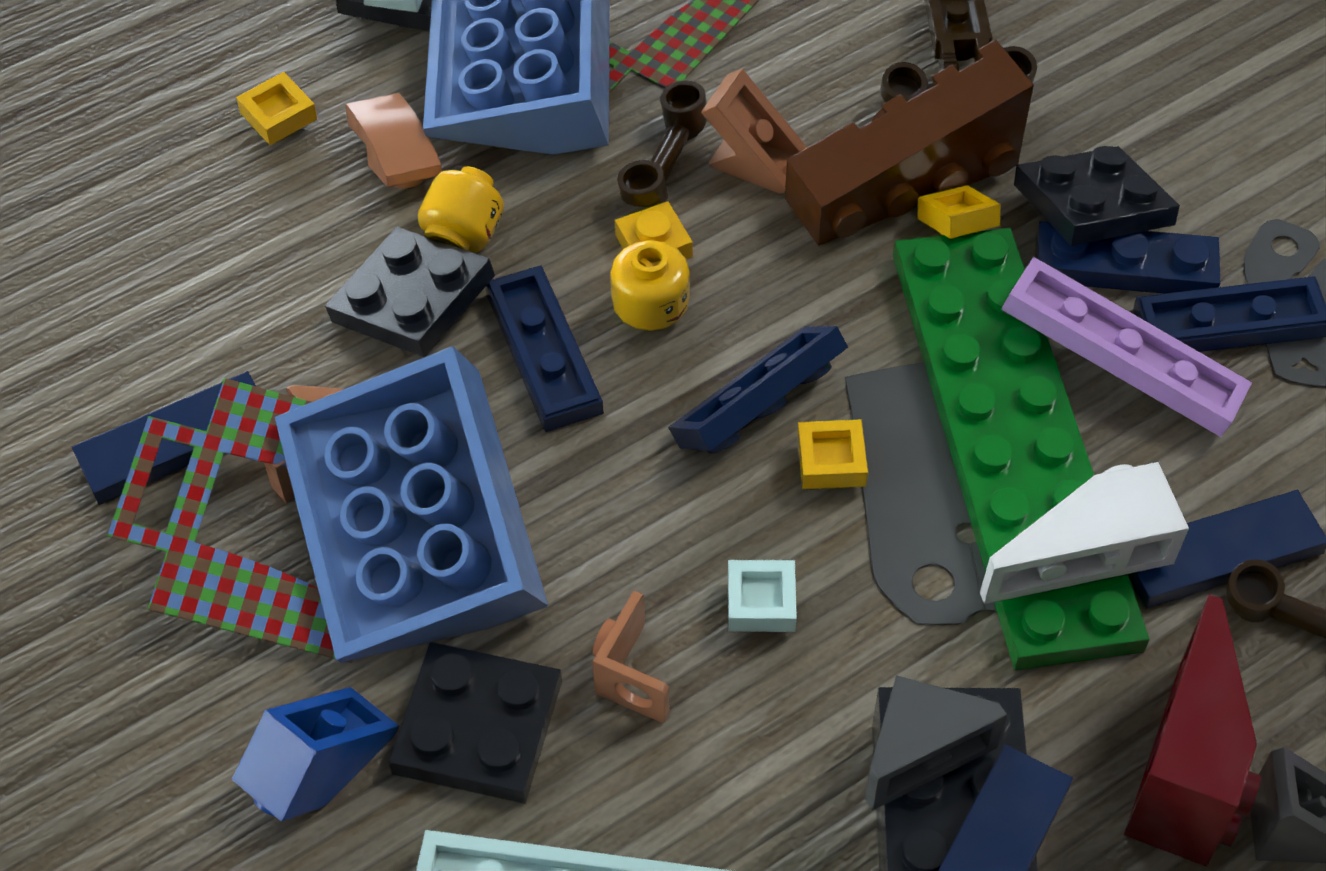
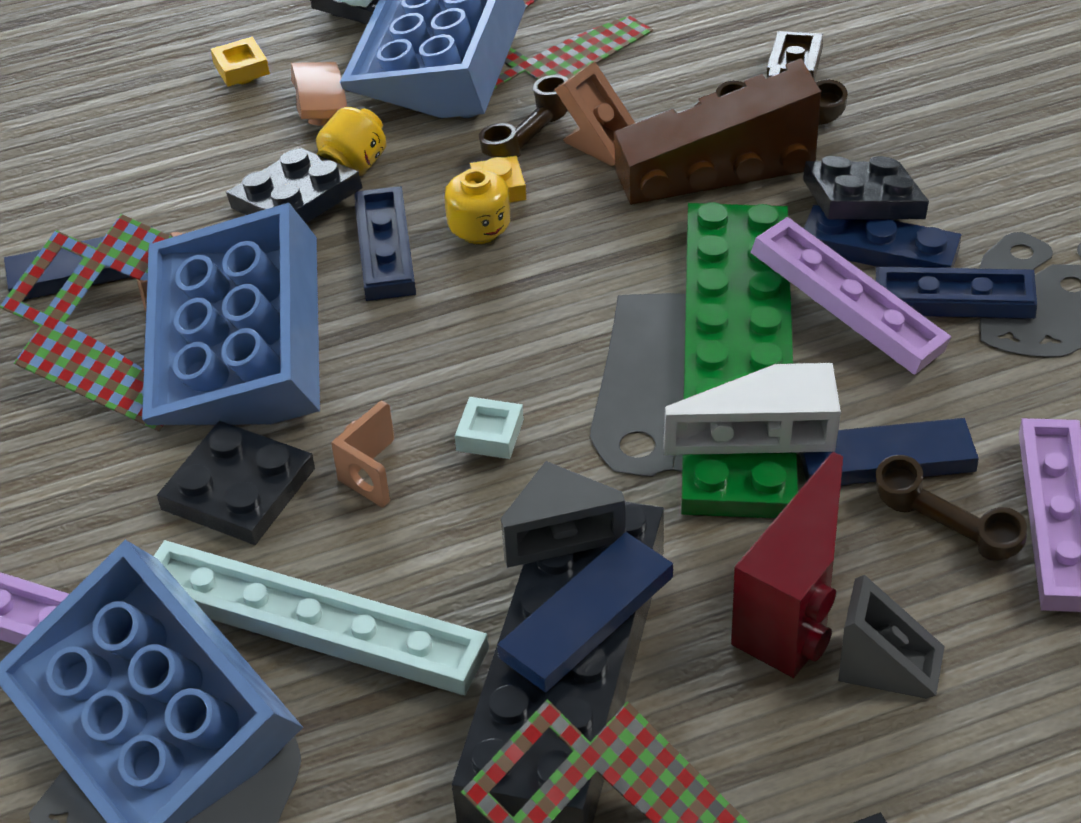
camera: 15 degrees right, 10 degrees down
(311, 751) = (98, 476): blue slope -> none
(759, 389) = (540, 290): dark blue plate -> none
(832, 454) = (582, 340): yellow plate -> none
(959, 211) = (747, 189): yellow plate -> none

